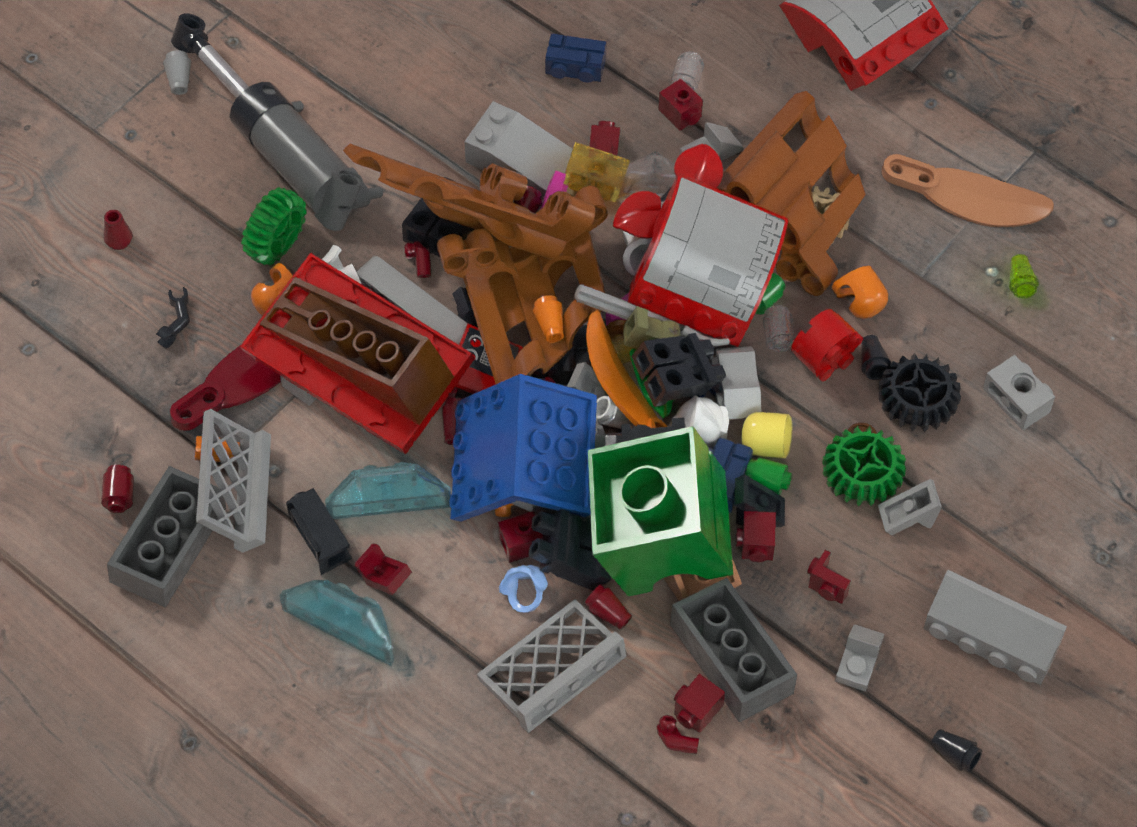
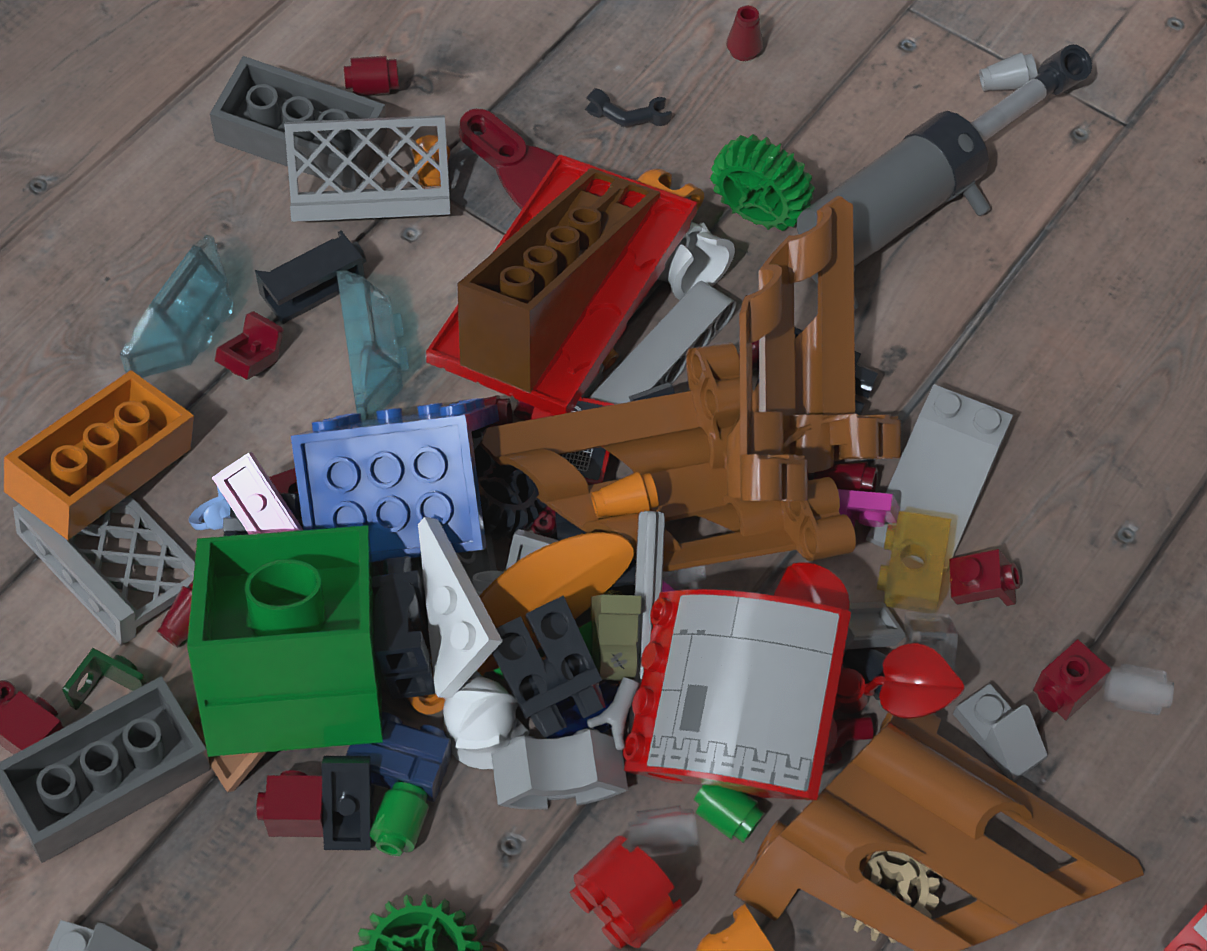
camera: 85 degrees right, 0 degrees up
(485, 655) = (97, 454): none -> orange brick
(557, 528) = (255, 497): none -> tile
(575, 58) = (1131, 532): dark blue brick -> none
(648, 407) = (457, 620): none -> white wing
(651, 650) = (98, 665): none -> dark green bracket
(768, 434) = (468, 800): light yellow helmet -> none
(825, 581) = (209, 908): dark red bracket -> none

